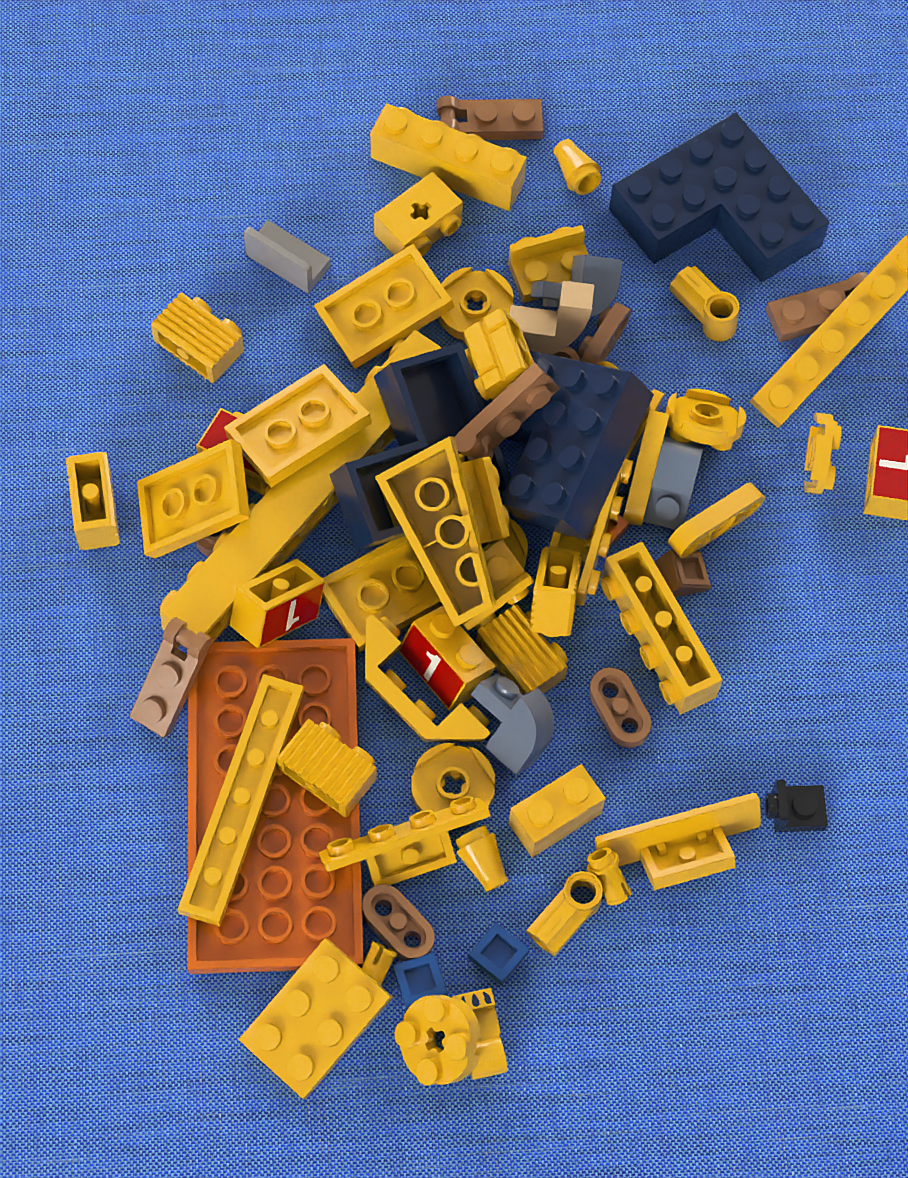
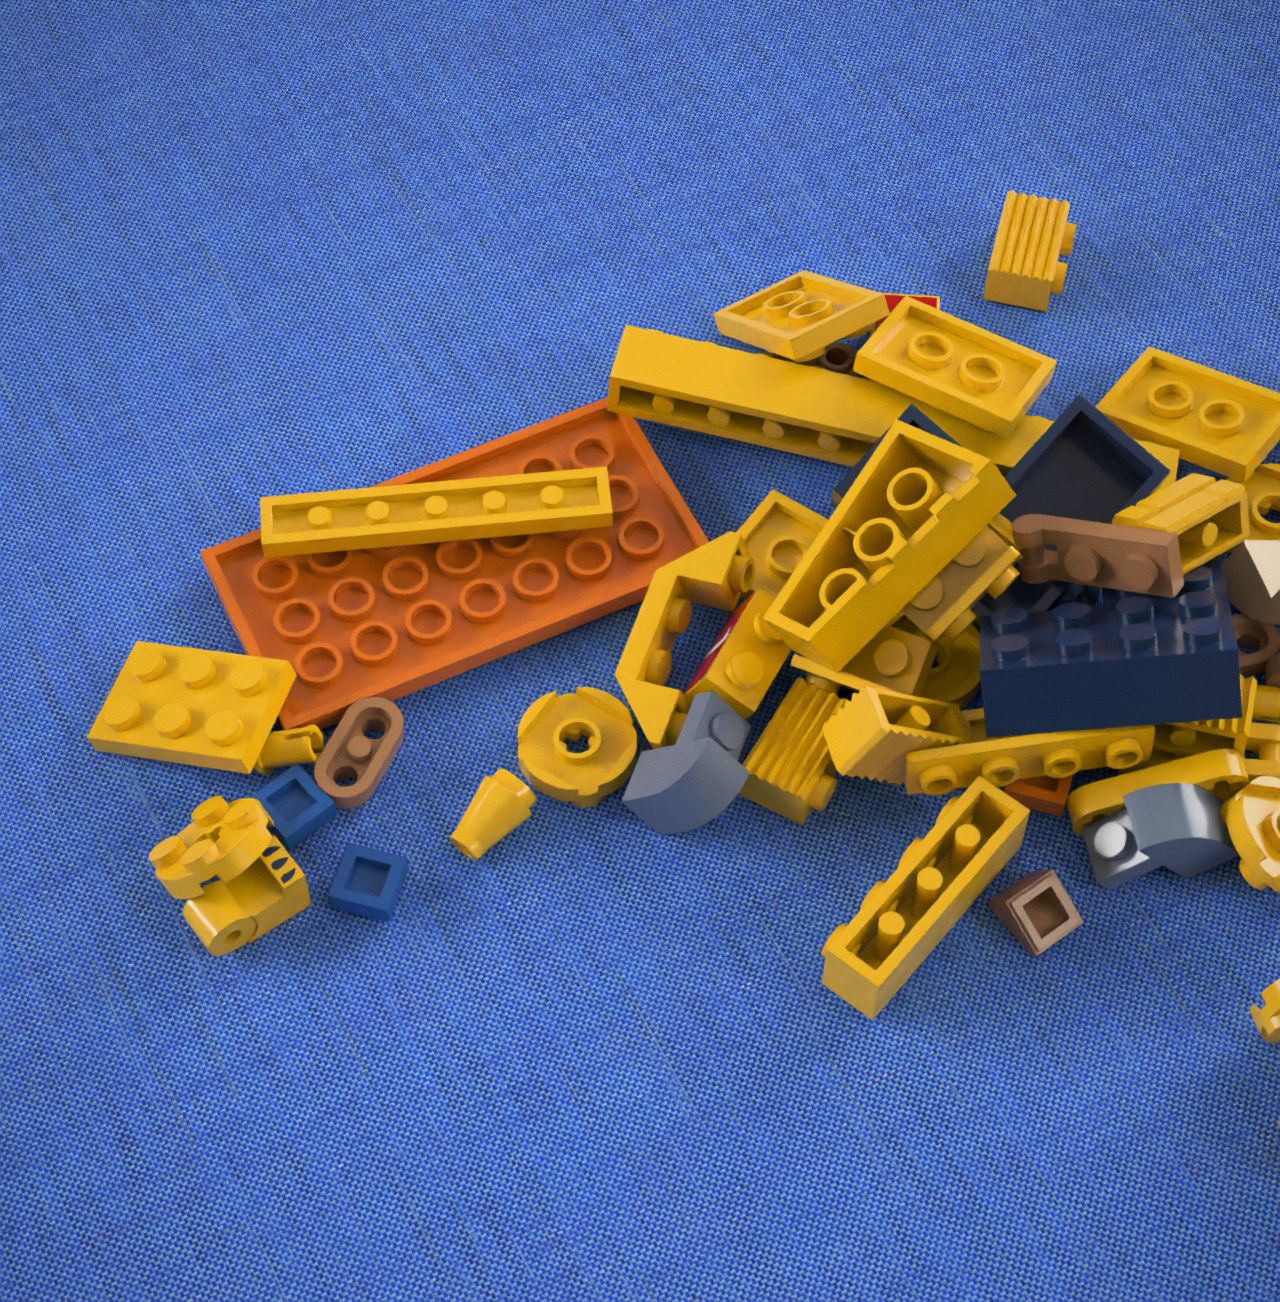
camera: 70 degrees right, 10 degrees down
(92, 501) = (745, 229): yellow brick -> none
(170, 678) = (556, 381): medium nougat plate -> none
(277, 603) = (712, 448): yellow brick -> none
(286, 255) = (1202, 299): light grey panel -> none
(328, 767) = (518, 582): yellow brick -> none
(407, 848) = (459, 719): yellow bracket -> none
(556, 810) = (595, 871): yellow brick -> none
(564, 915) = (456, 941): yellow piece -> none
(605, 866) = (532, 968): yellow pin -> none
(621, 709) = (786, 903): medium nougat plate -> none
(687, 842) = (627, 1049): yellow bracket -> none
(716, 520) = (1133, 910): yellow beam -> none
(796, 807) = (757, 1183): black bracket -> none

